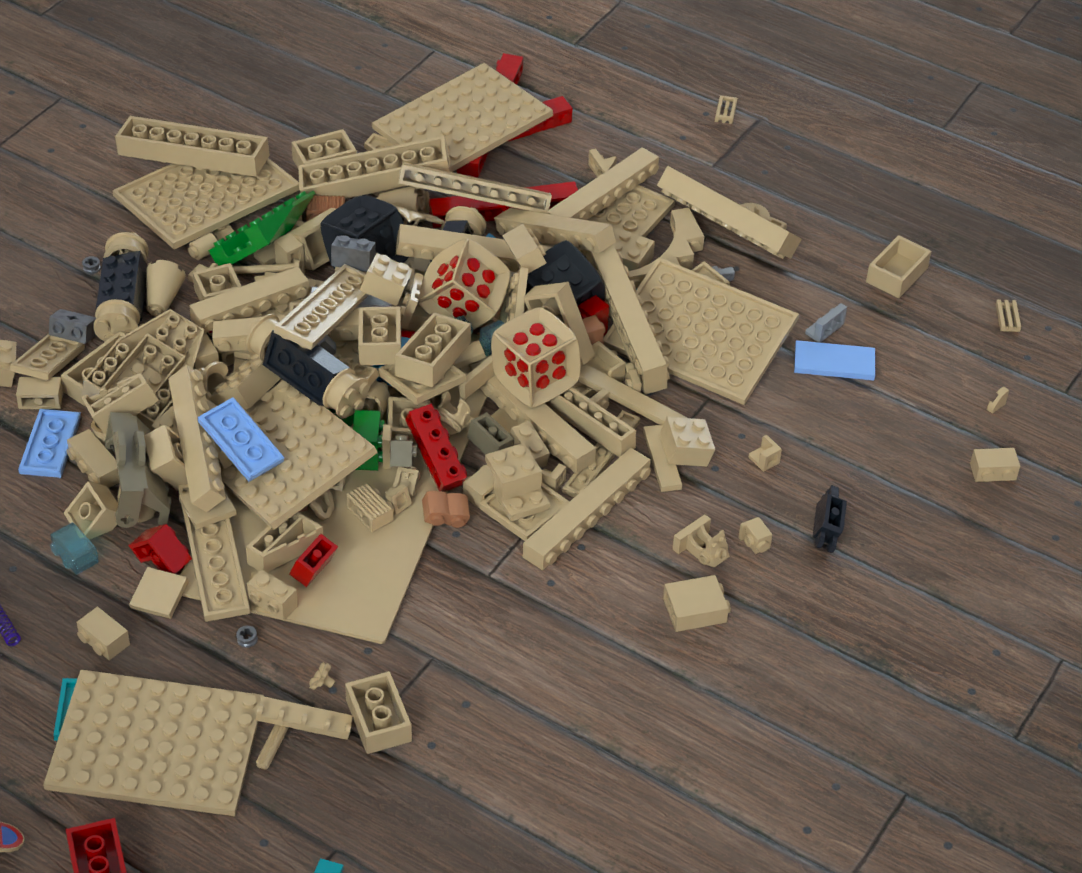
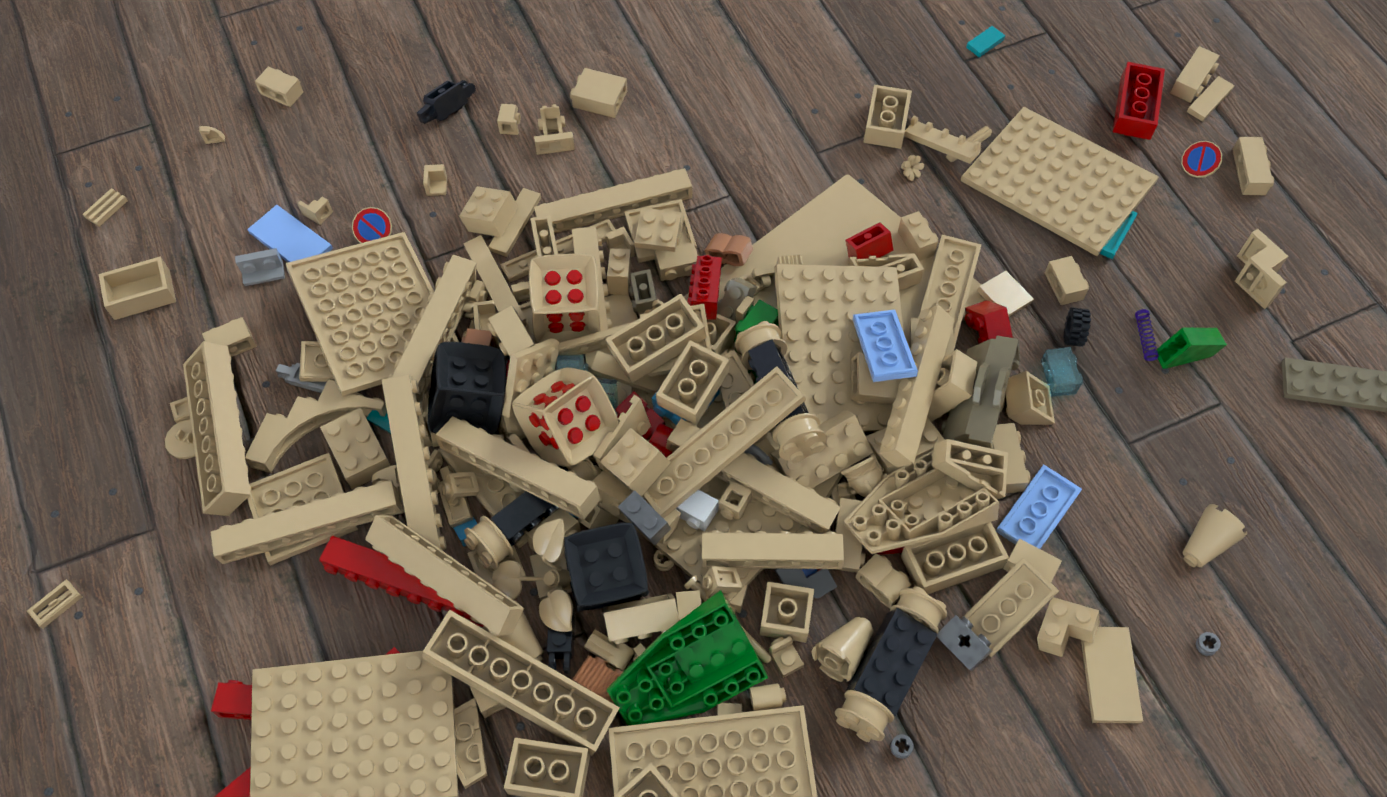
camera: 145 degrees left, 15 degrees up
(74, 583) = (1077, 327): none -> black tyre
(247, 630) = (949, 225): flat silver bush -> none
(274, 267) = (721, 579): none -> tan bracket
(525, 248) = (483, 405): tan brick -> none
(599, 164) = (267, 576): tan slope -> none
(775, 391) = (371, 224): none -> piece
(792, 272) = (232, 334): none -> tan brick
(839, 385) = (317, 210): none -> tan panel

